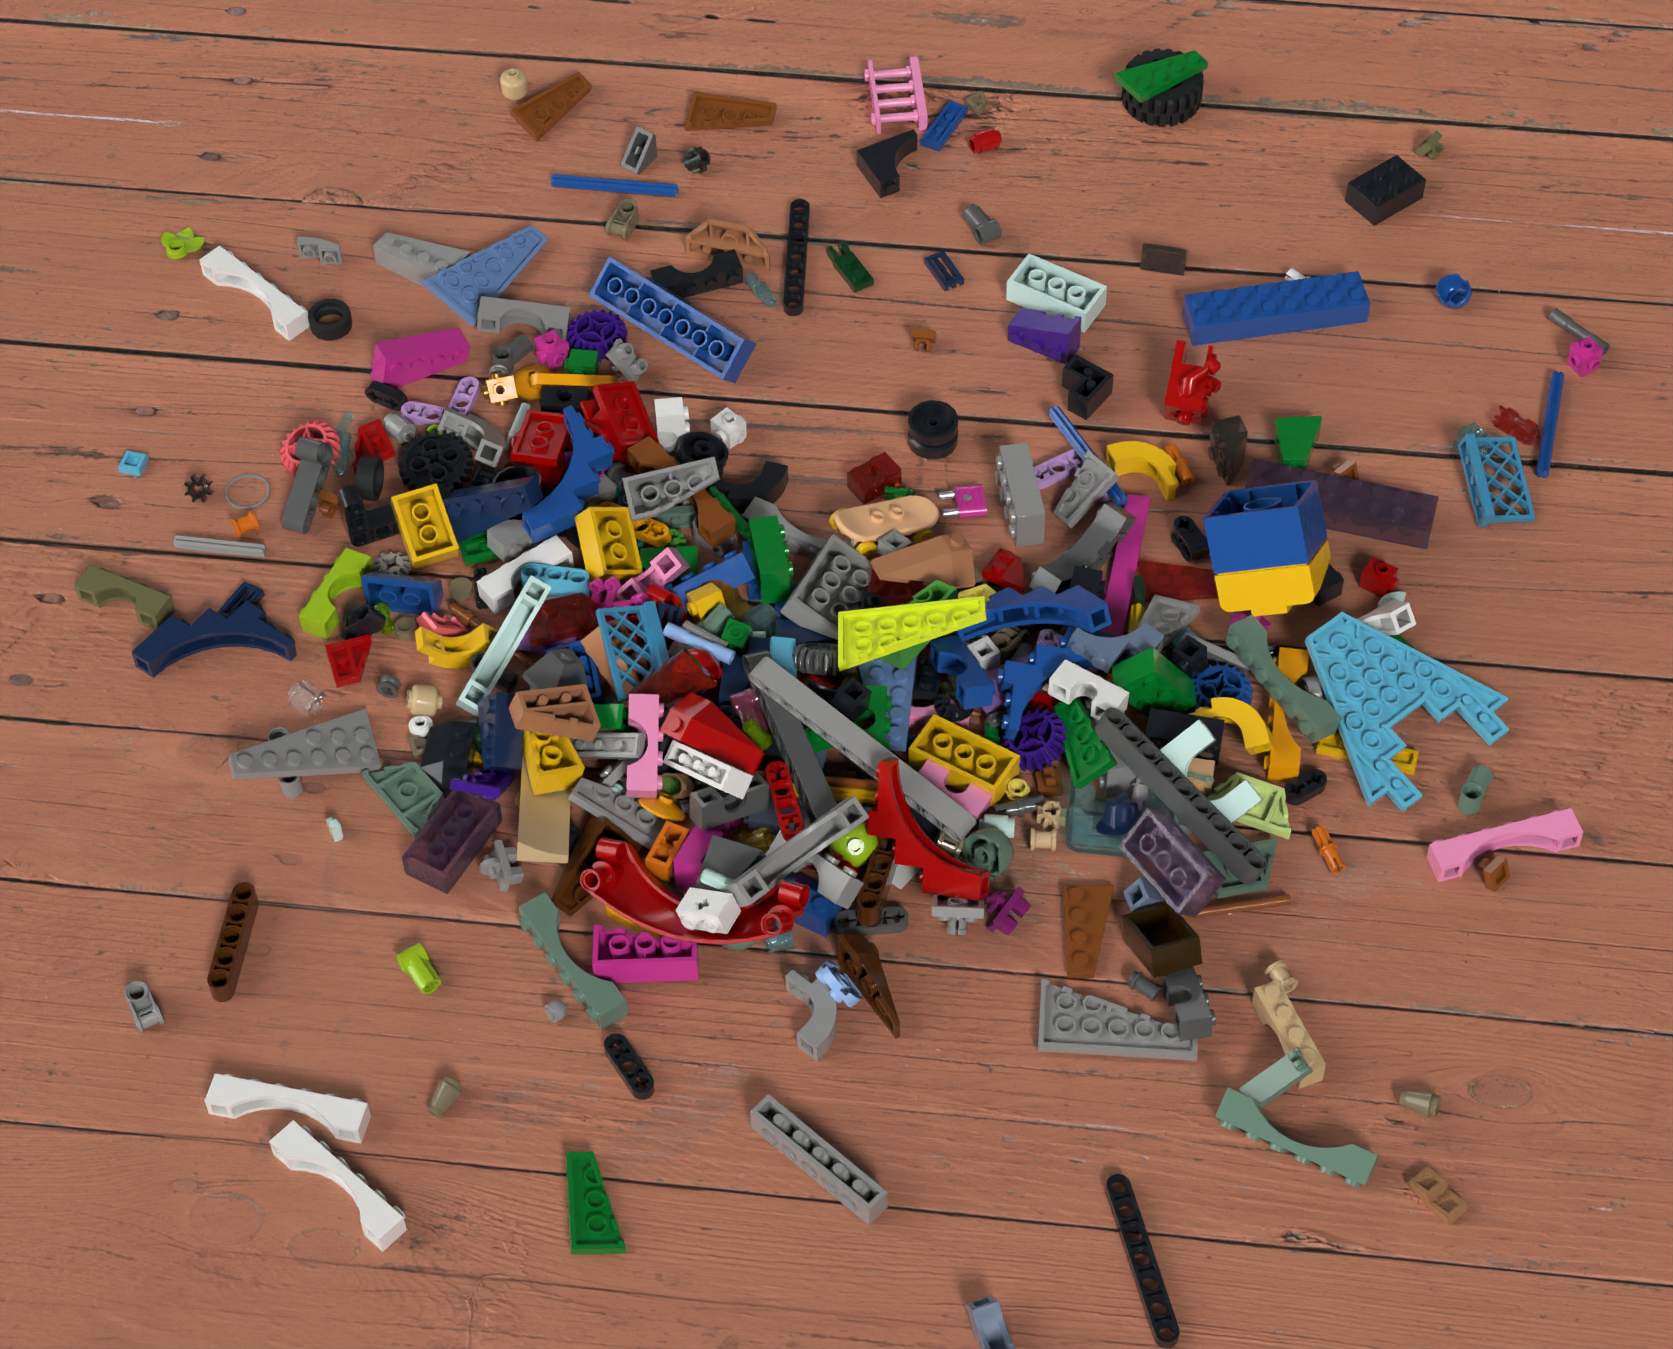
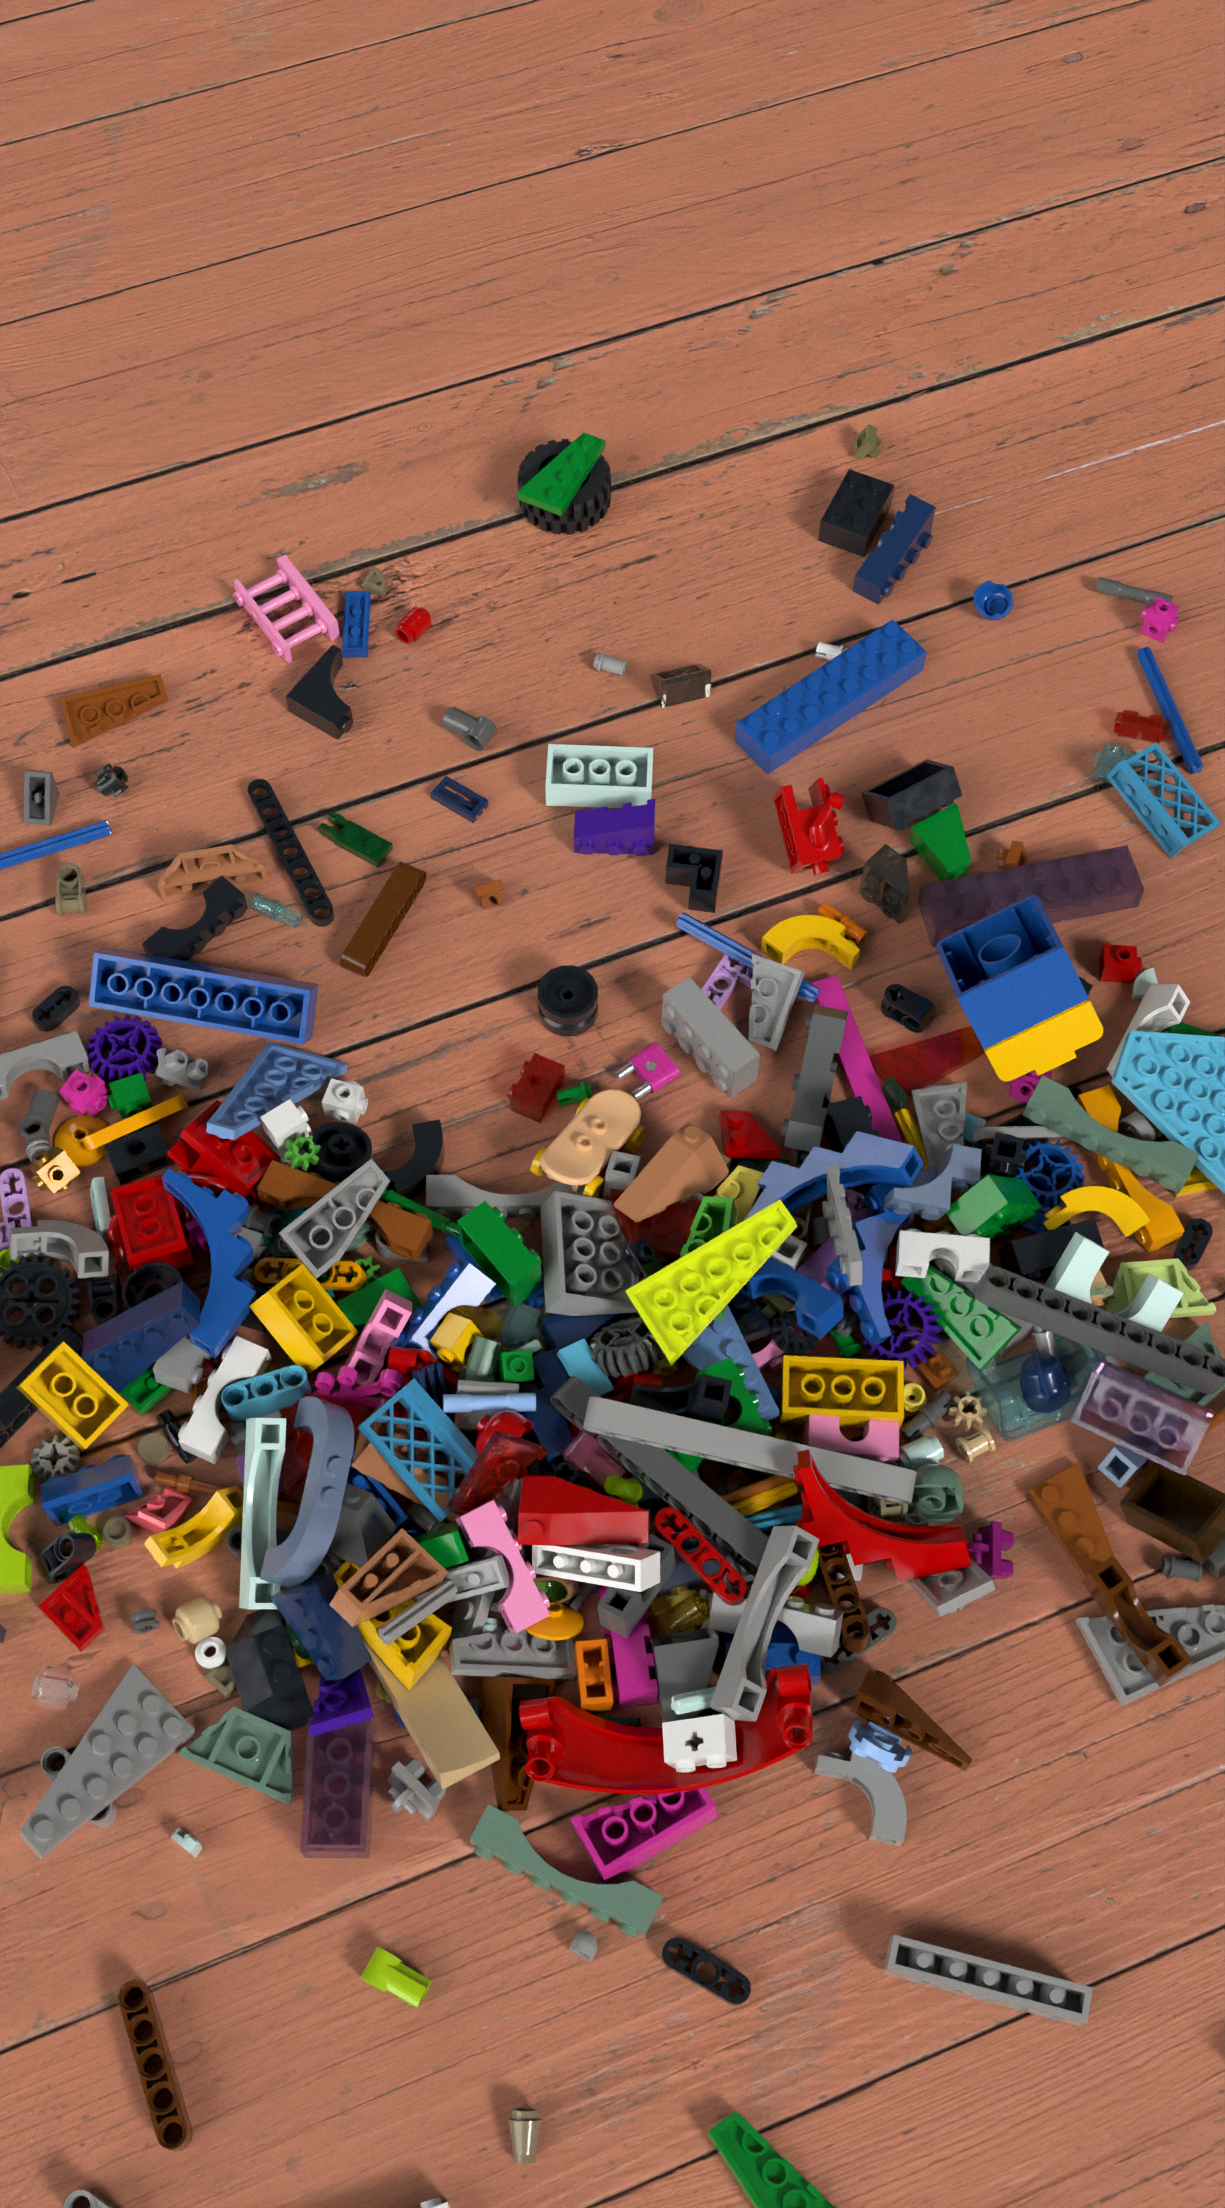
camera: 30 degrees left, 10 degrees up
(566, 743) = (417, 1612): none -> light grey axle
(567, 291) = (55, 1008): none -> black beam
(574, 609) = (322, 1495): none -> sand blue arch
(671, 437) = (305, 1144): none -> bright green gear
(695, 388) = (271, 1080): none -> medium blue wing
(834, 325) = (383, 919): none -> reddish brown beam
(1025, 638) = (841, 1227): none -> light grey wing
(1077, 990) = (1154, 1647): none -> reddish brown arch
(1114, 220) = (610, 664): none -> light grey pin
(1290, 396) = (912, 794): none -> black piece
(1398, 227) = (896, 550): none -> dark blue wedge

